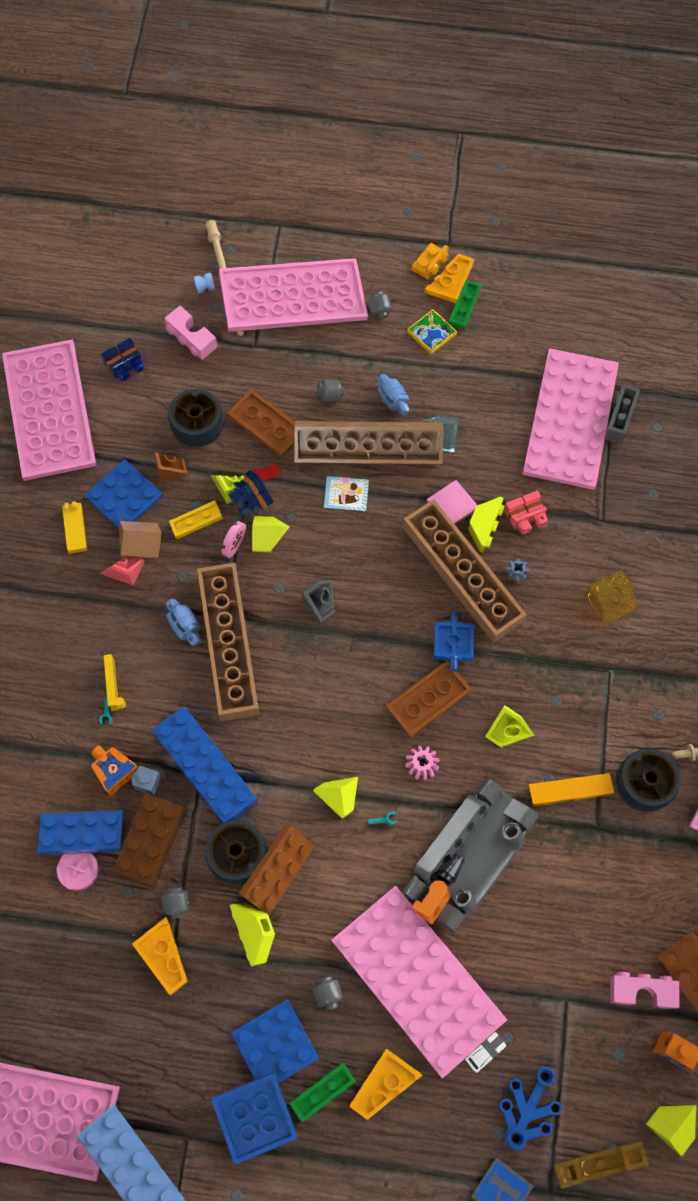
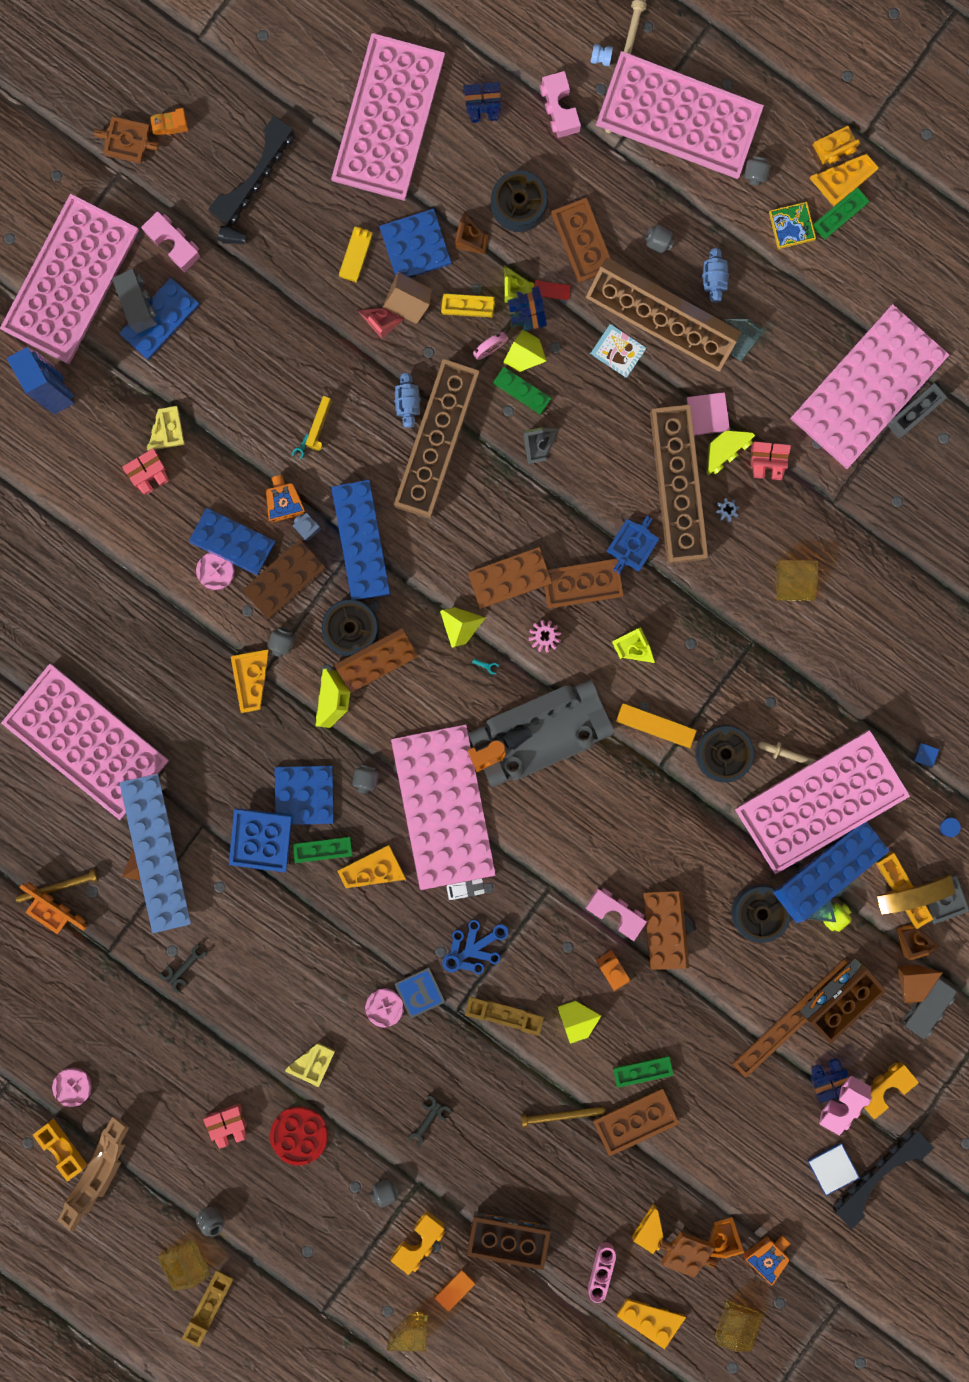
camera: 30 degrees right, 20 degrees up
(281, 565) = (522, 390): none -> green plate
(360, 727) = (510, 578): none -> dark orange plate

